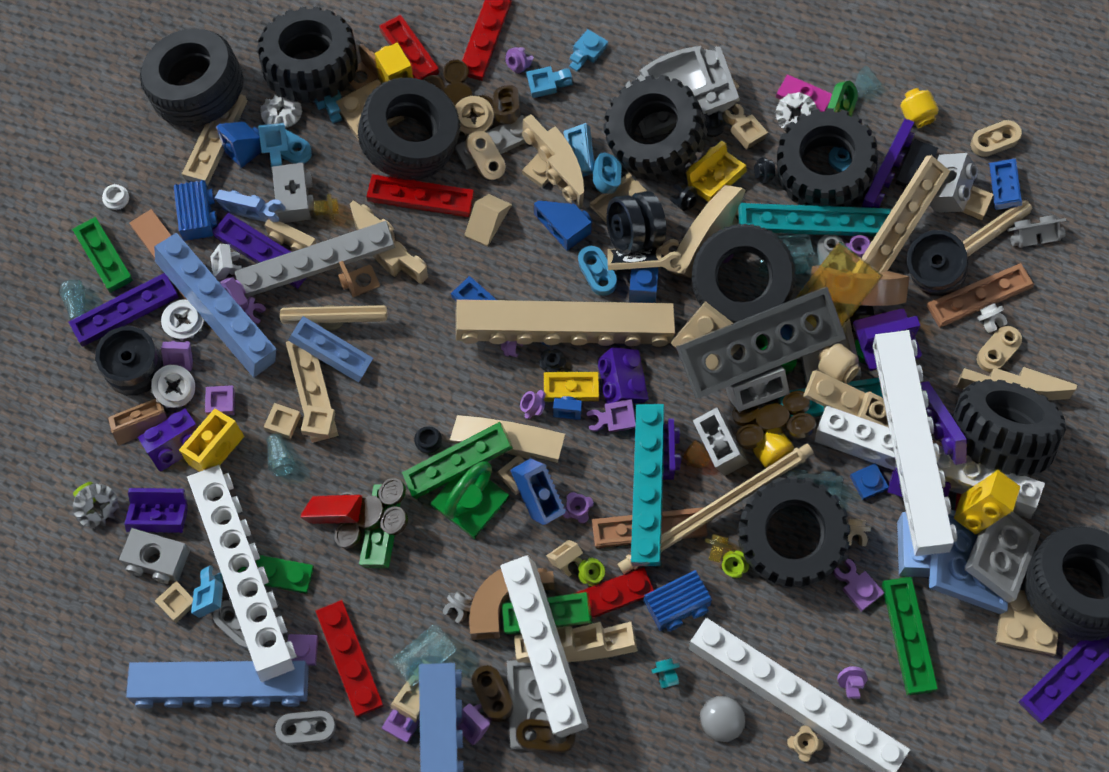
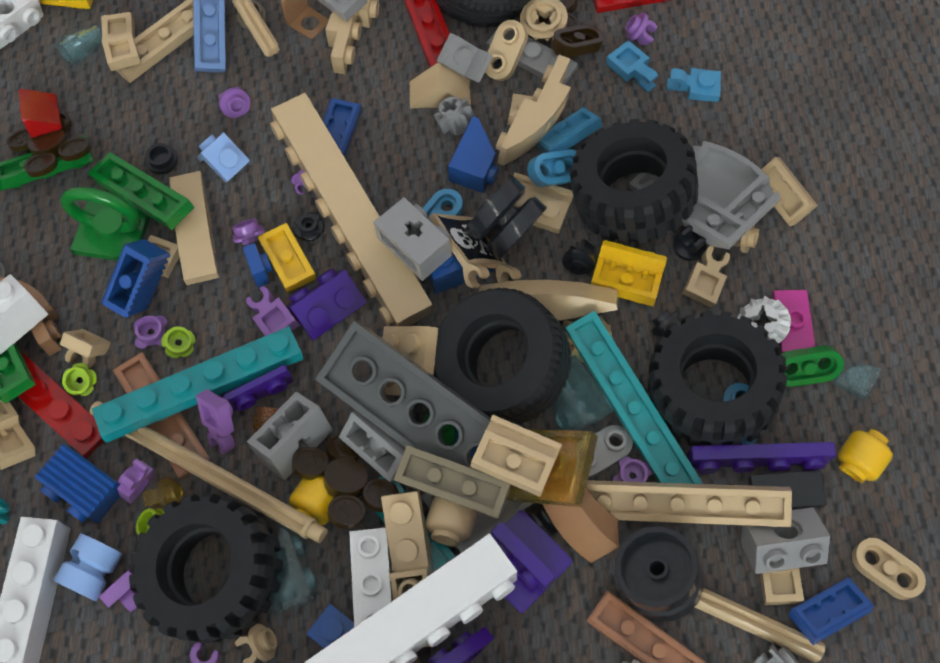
camera: 60 degrees right, 0 degrees up
(411, 364) = (234, 102): none -> medium lavender plate
(453, 393) = (222, 156): none -> light blue bracket
(481, 183) = (464, 58): none -> light grey bracket
(520, 217) = (454, 115): none -> light grey gear
(598, 484) = (174, 334): none -> lime plate
(639, 285) = (413, 238): none -> light grey brick
(683, 481) = (216, 416): none -> medium lavender plate
(698, 558) = (134, 481): none -> medium lavender plate
(709, 40) = (794, 199): none -> tan plate
(747, 626) = (88, 567): none -> light blue wheel
(772, 602) = (120, 590): none -> medium lavender tile
(822, 345) = (452, 482): none -> dark tan plate
(830, 294) = (516, 455): none -> tan plate

